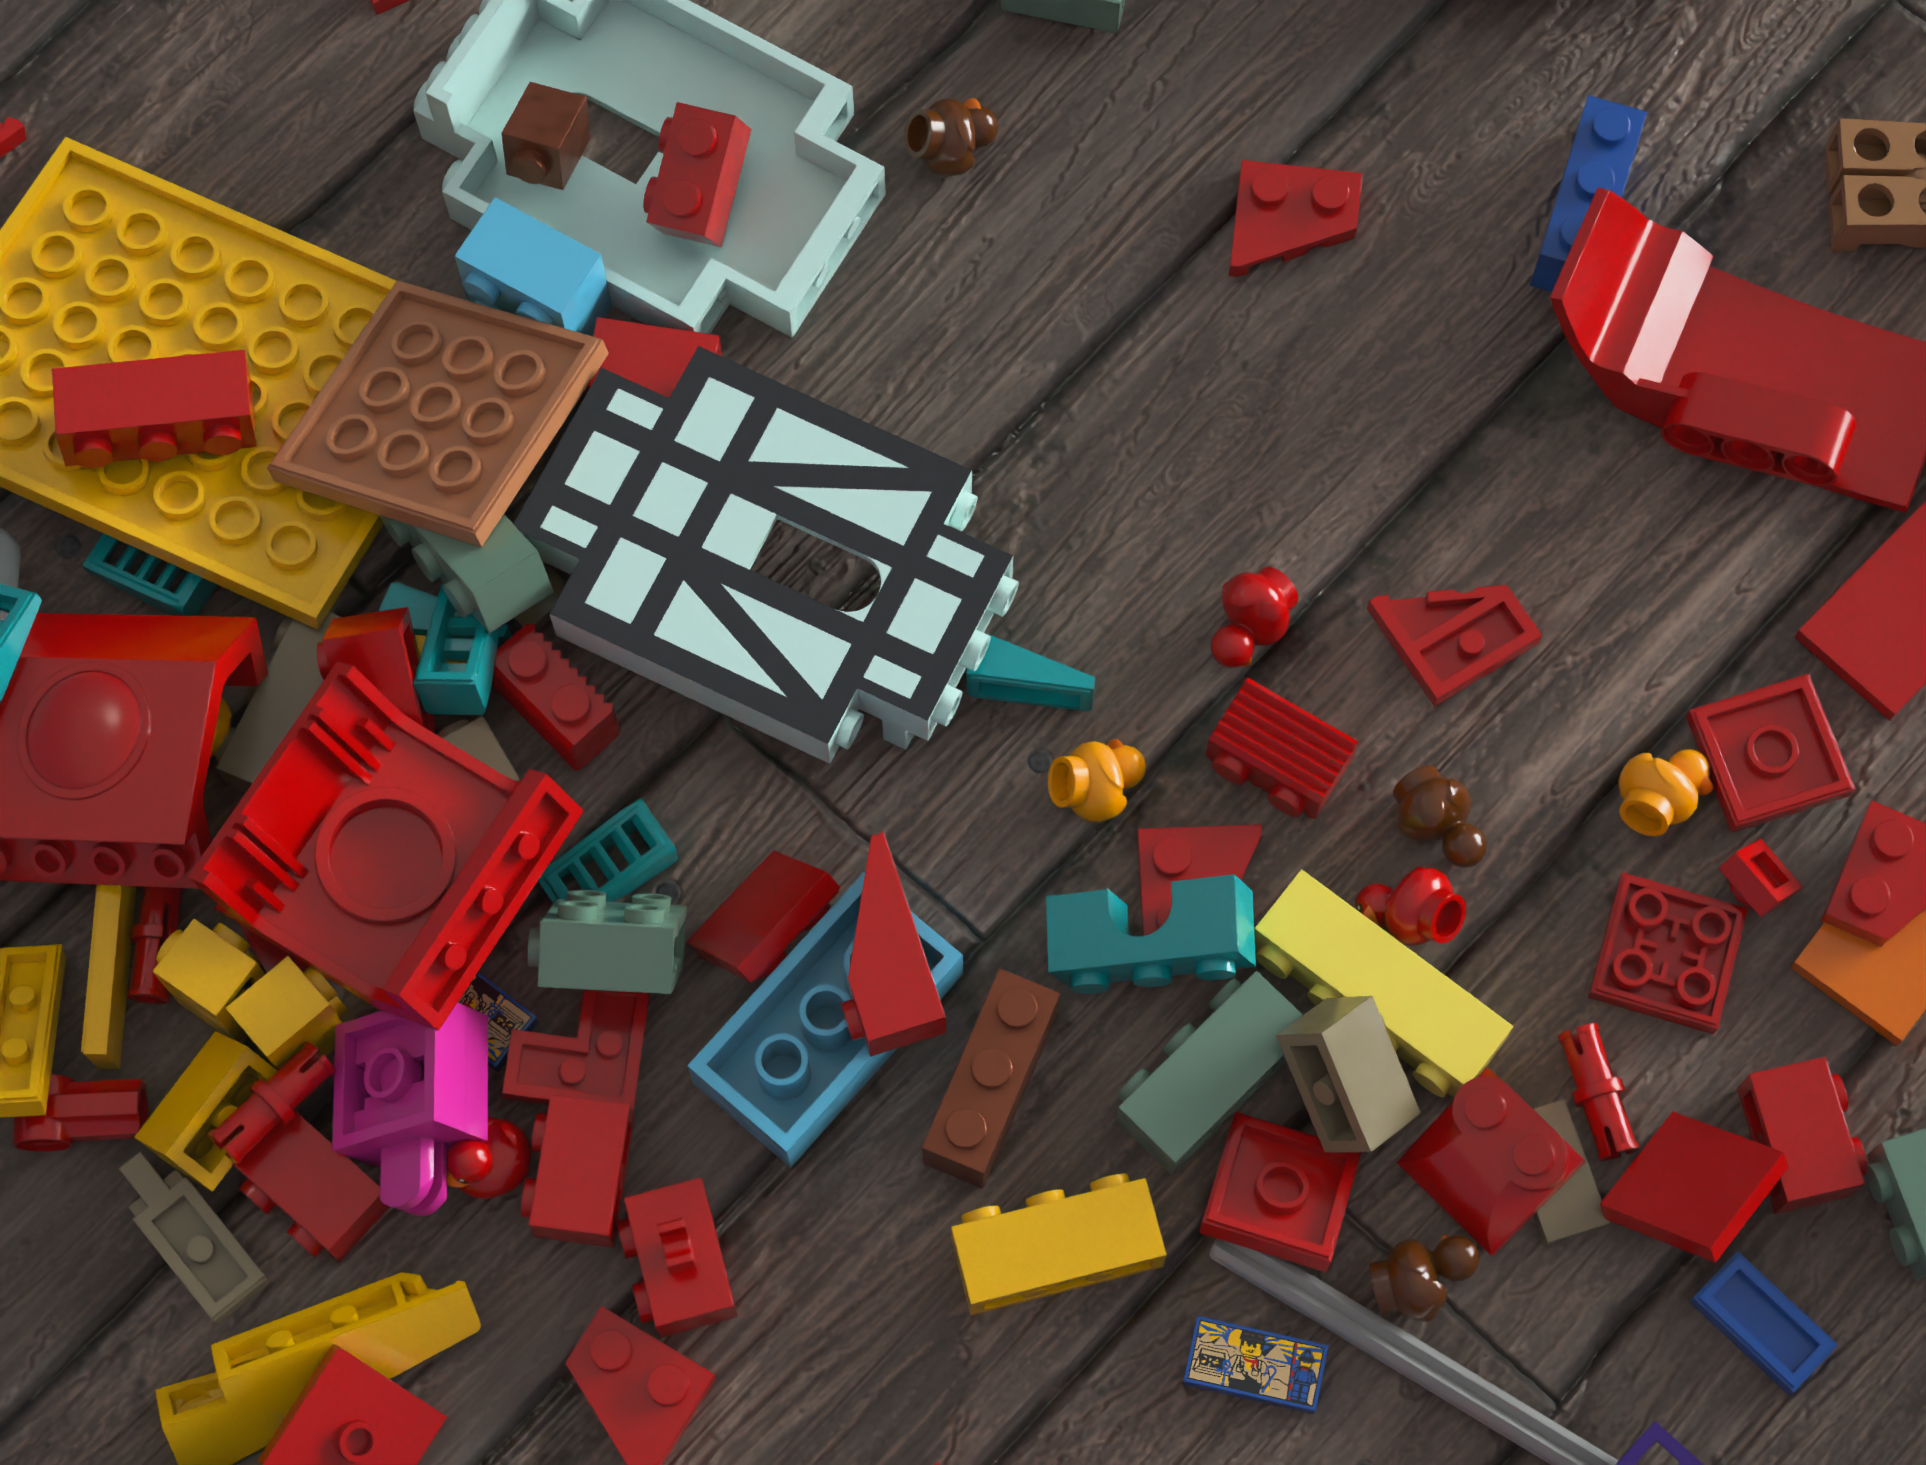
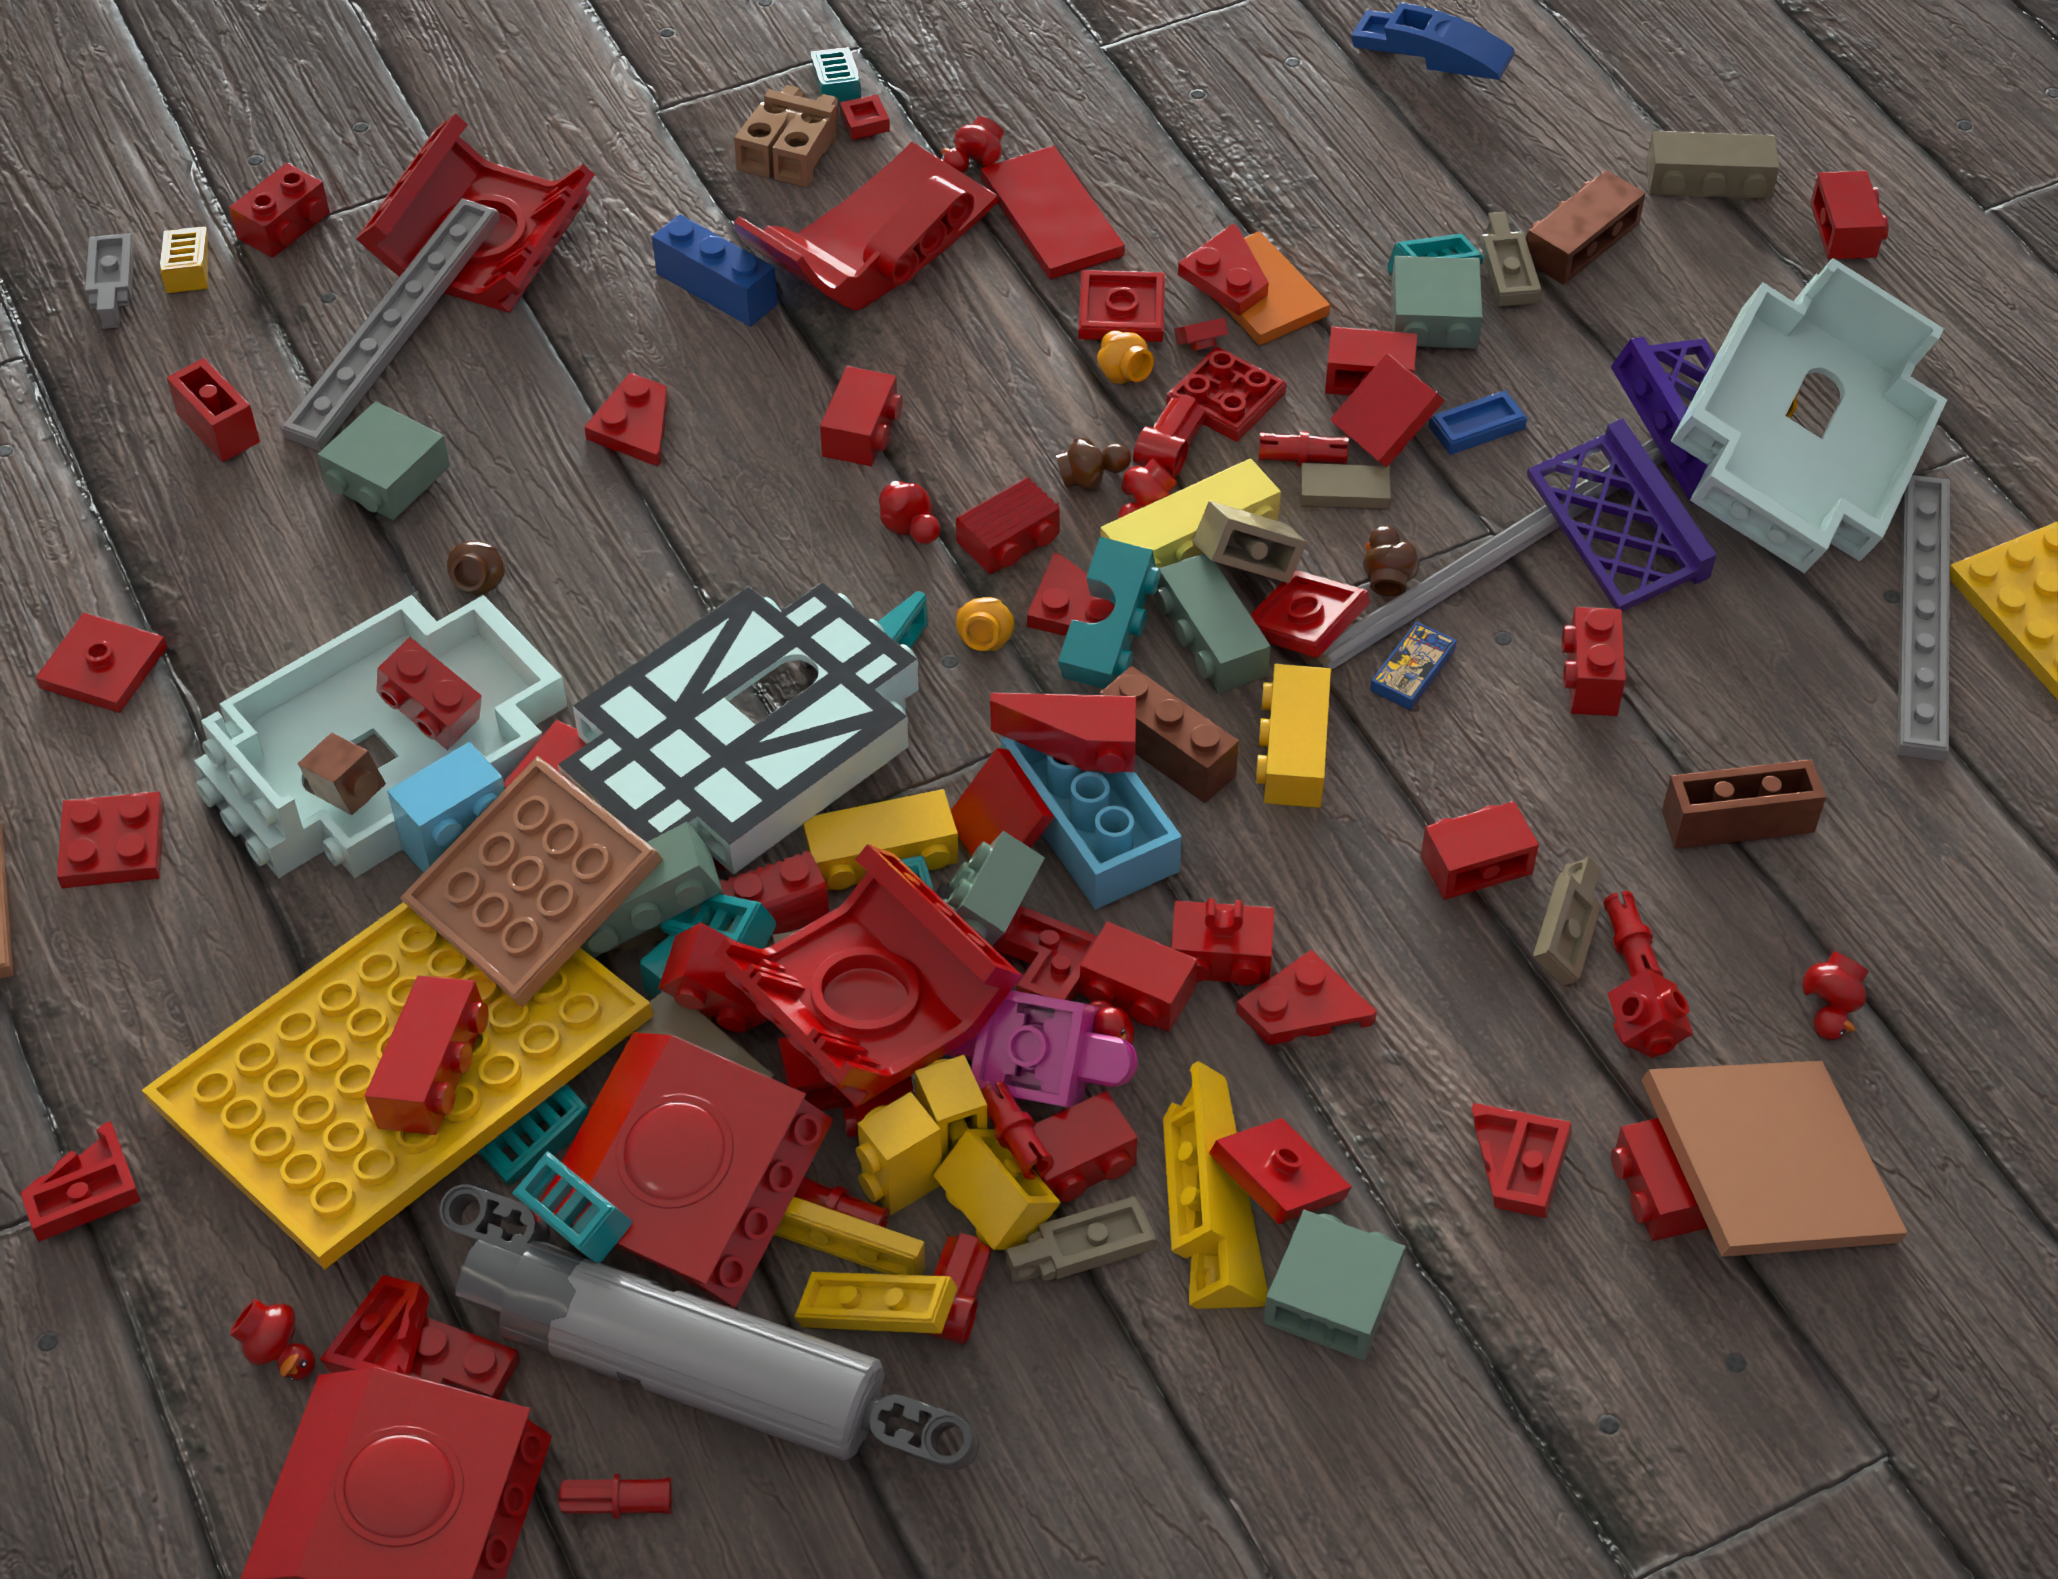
camera: 70 degrees left, 20 degrees down
(691, 787) = (901, 826): none -> yellow brick
(1401, 488) = (860, 416): none -> red brick
(1454, 635) = (972, 423): red wing -> none
(1490, 1161) = (1328, 502): red slope -> none
(1517, 903) = (1171, 435): none -> red piece

